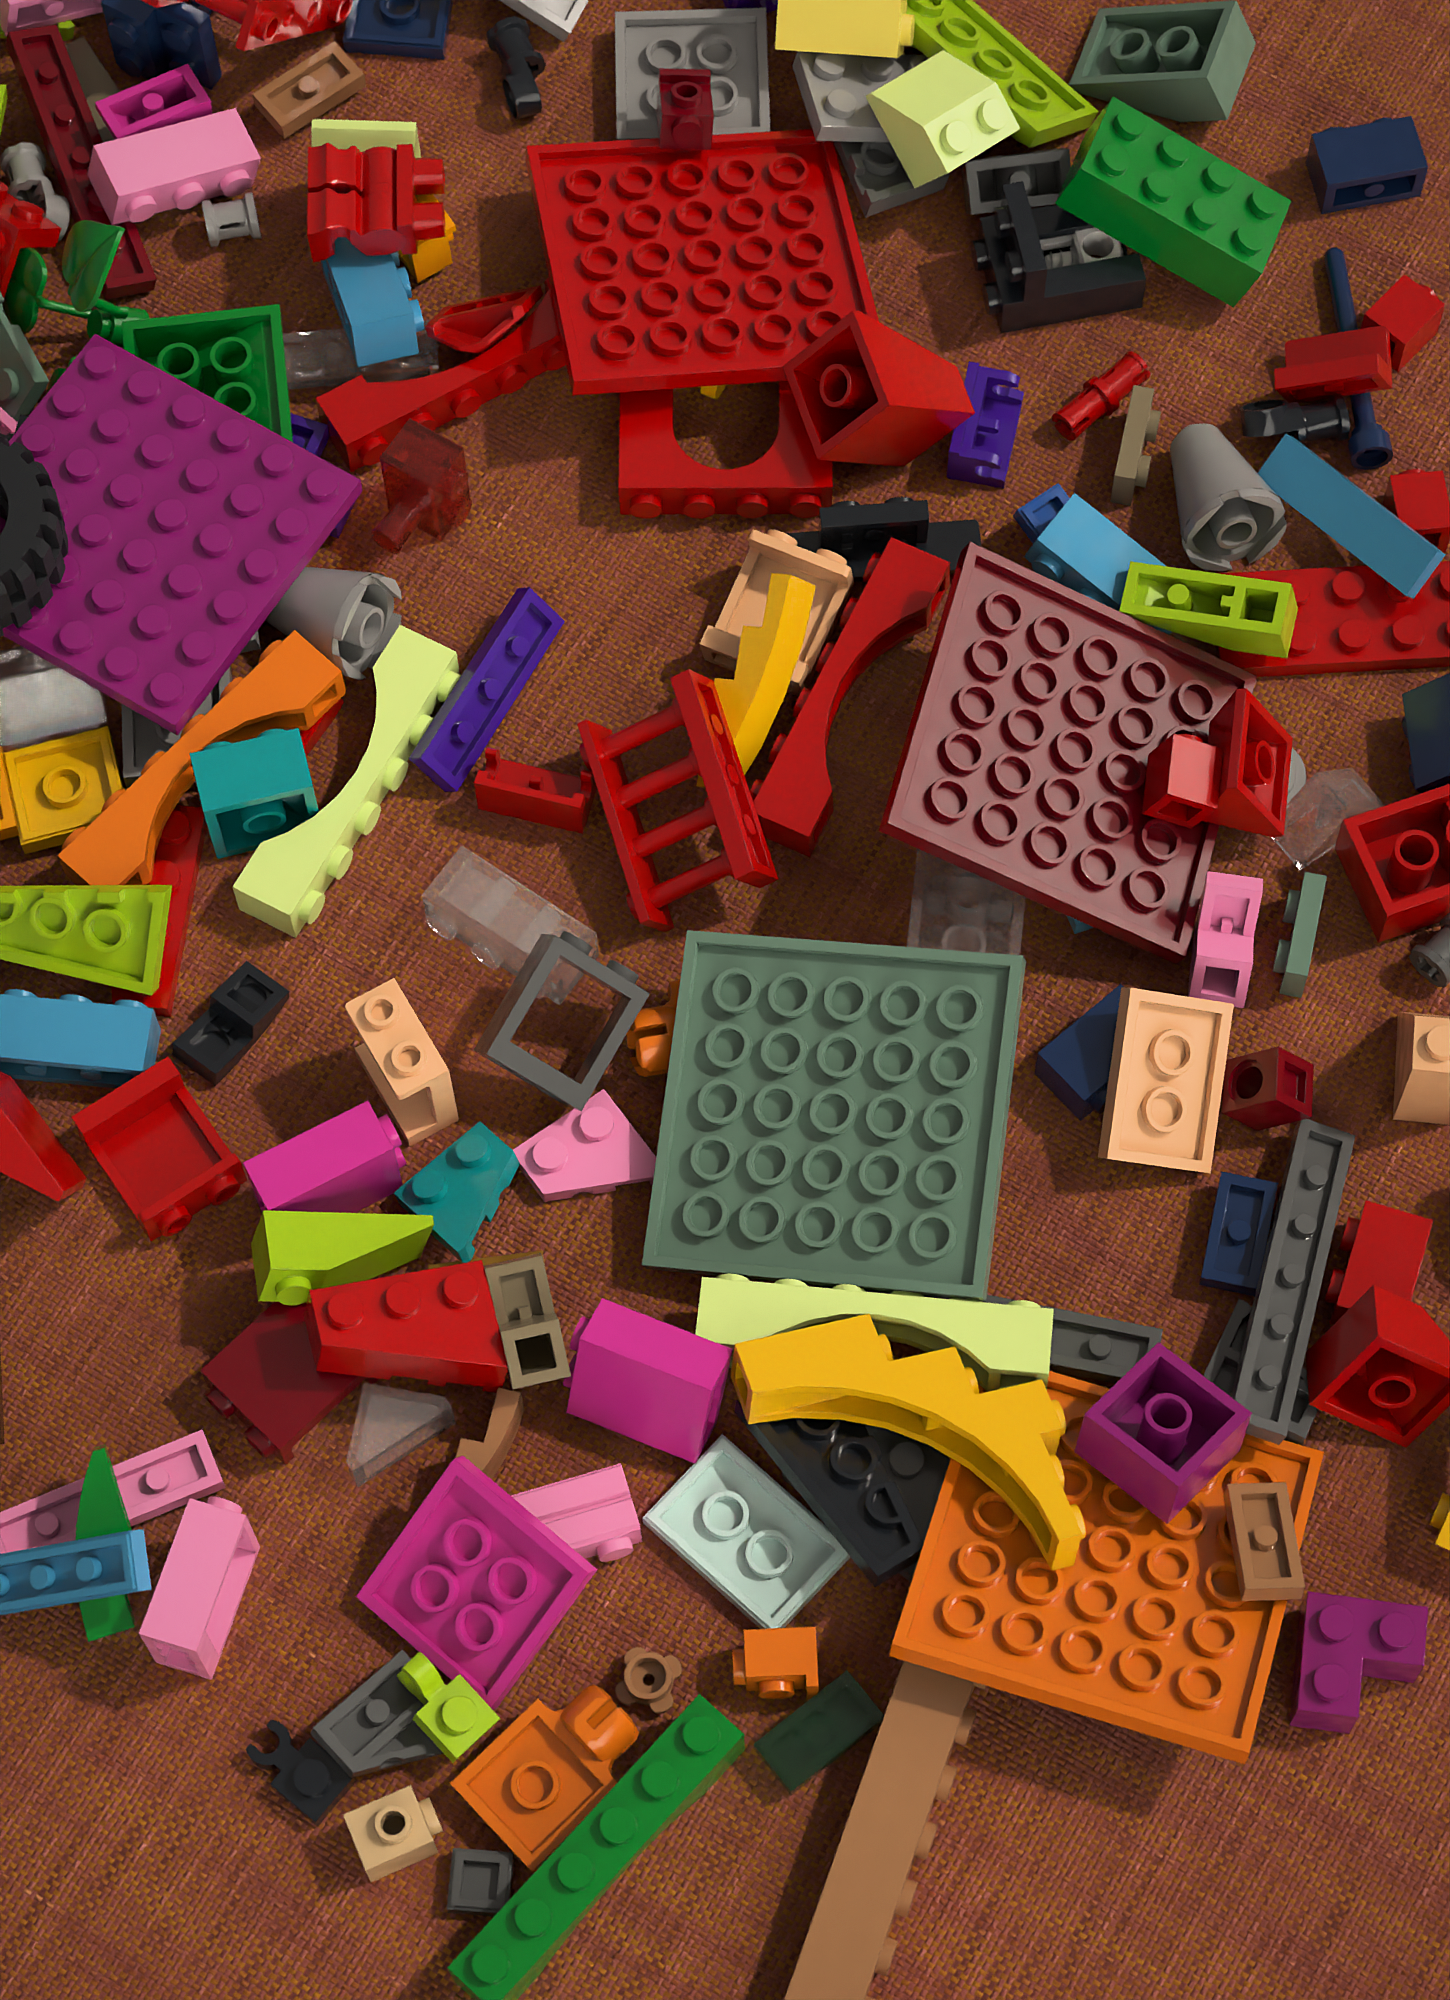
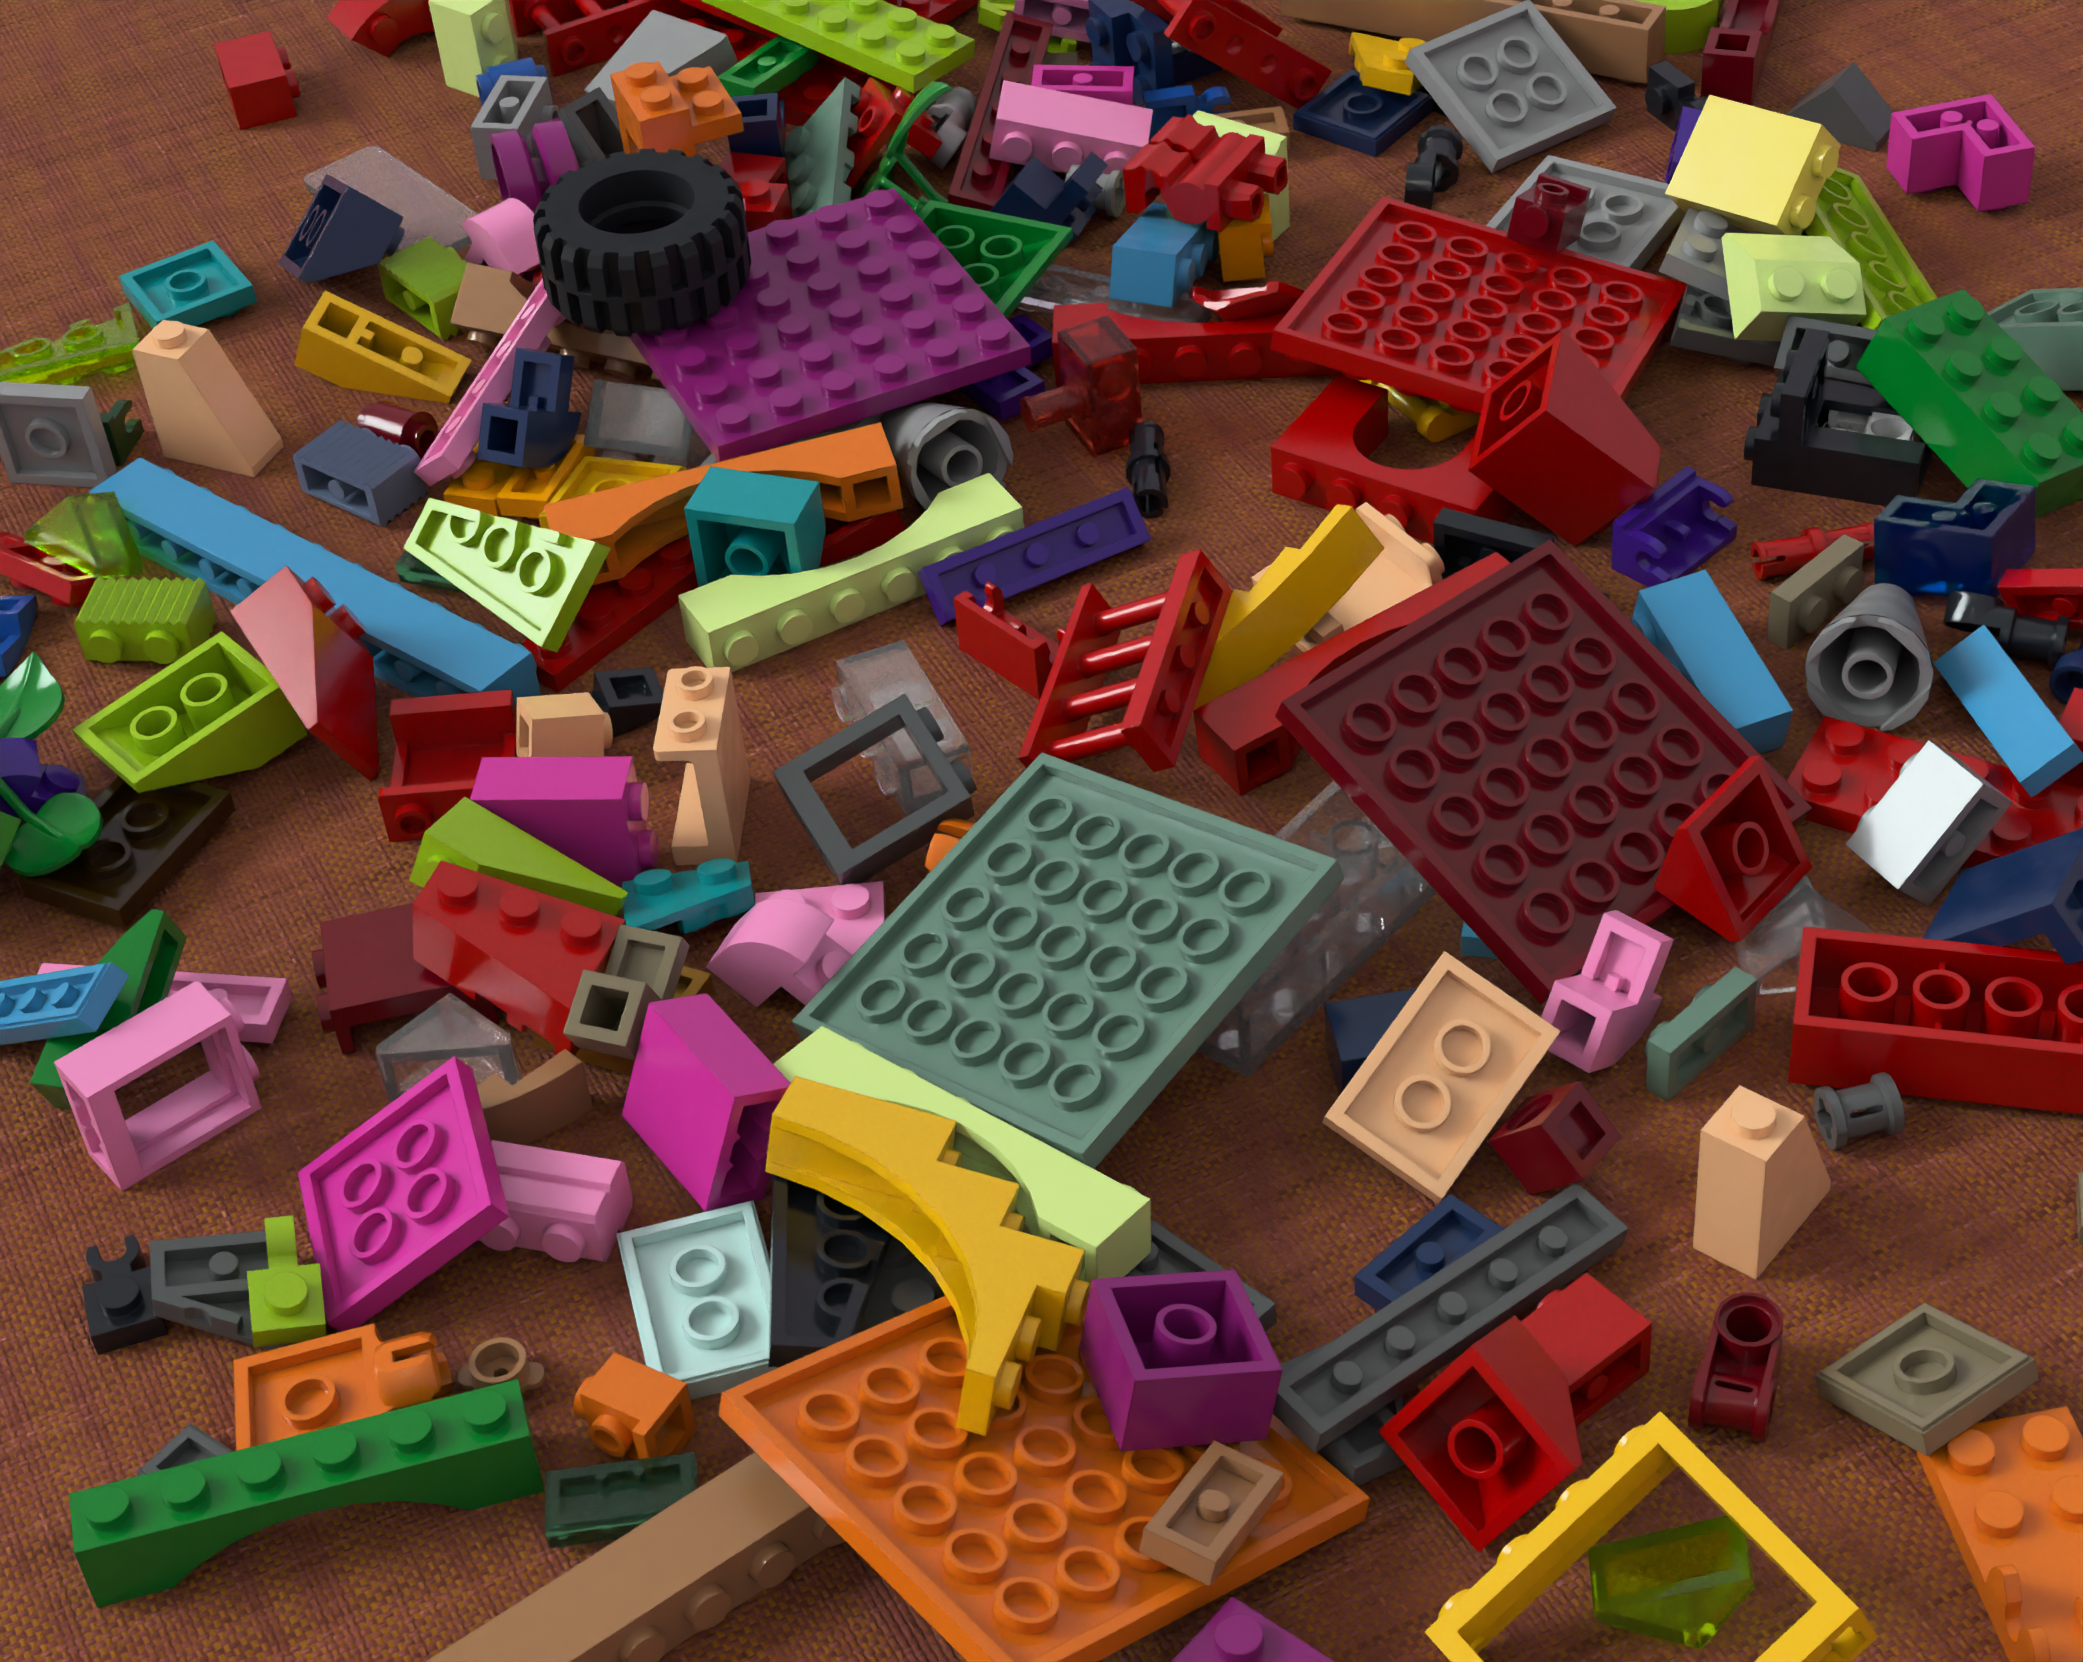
camera: 35 degrees right, 25 degrees down
(205, 263) = (1046, 198): none -> dark blue brick
(234, 85) = (1180, 102): none -> blue plate
(238, 1077) = (562, 726): none -> light nougat brick
(393, 1832) = (144, 1377): tan brick -> none
(508, 542) = (1148, 469): none -> black pin
(588, 1205) = (778, 947): none -> bright pink brick
(1182, 780) = (1642, 826): red brick -> none
(1213, 607) = (1796, 715): lime slope -> none
(1219, 359) = (1956, 545): none -> clear blue brick
(1361, 664) = (1928, 823): none -> brick

